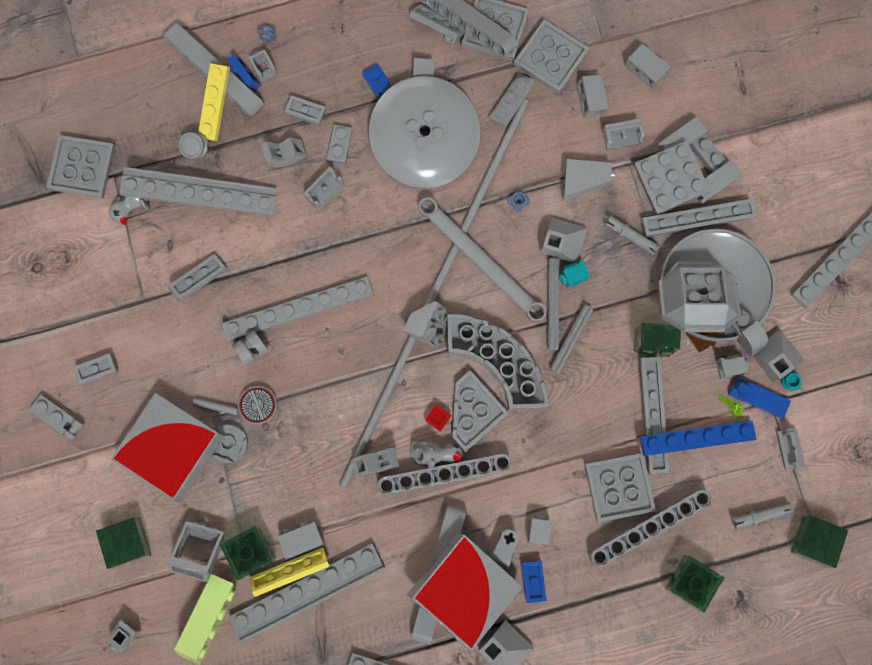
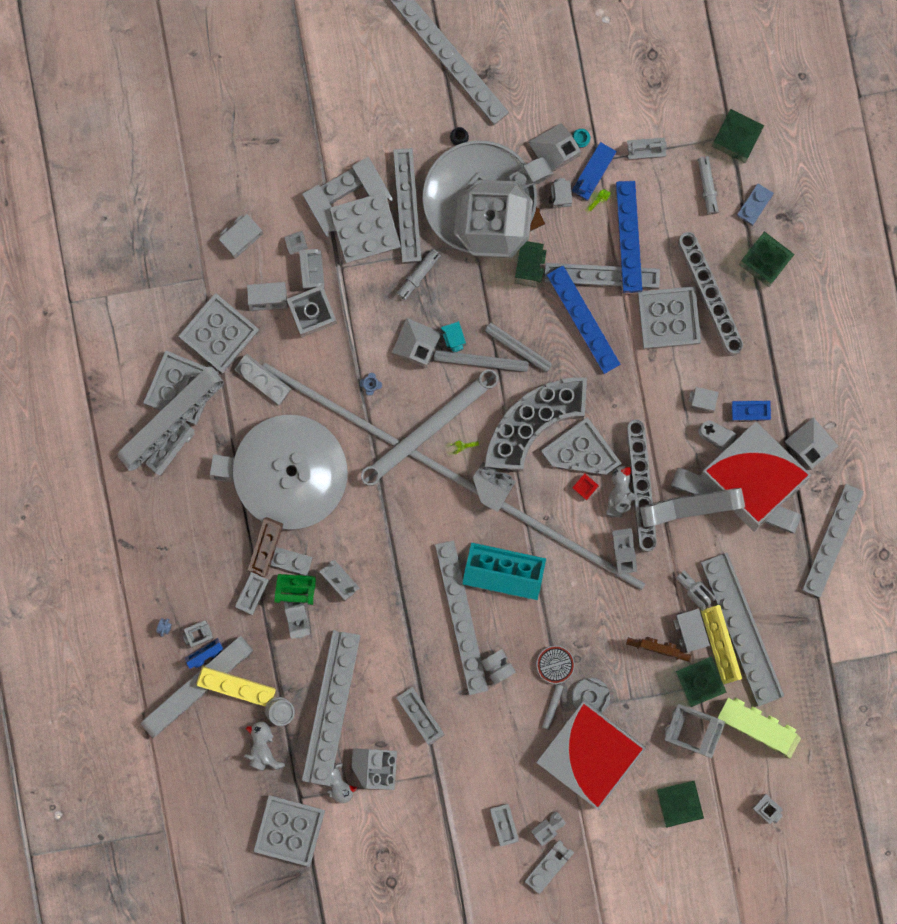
camera: 80 degrees left, 5 degrees up
(91, 412) = (547, 830): none -> light grey plate
(144, 239) = (375, 768): none -> light grey slope
(152, 132) = (260, 752): none -> light grey animal
(281, 498) = (651, 645): none -> reddish brown plate
(316, 148) = (295, 584): none -> green plate
(344, 537) = (696, 591): none -> light grey arm
(346, 345) = (504, 571): none -> teal slope
(349, 115) = (265, 547): none -> plate
(376, 80) = (228, 515): blue plate -> none
(426, 525) = (692, 506): none -> light grey beam
(467, 295) = (461, 446): none -> clear neon green hand
(583, 136) = (311, 311): none -> light grey brick
(585, 177) = (353, 314): light grey slope -> none
(607, 400) = (583, 319): none -> blue plate
(648, 117) = (296, 242): none -> light grey plate
(749, 567) = (755, 204): none -> sand blue plate
(780, 257) = (454, 141): none -> black piece

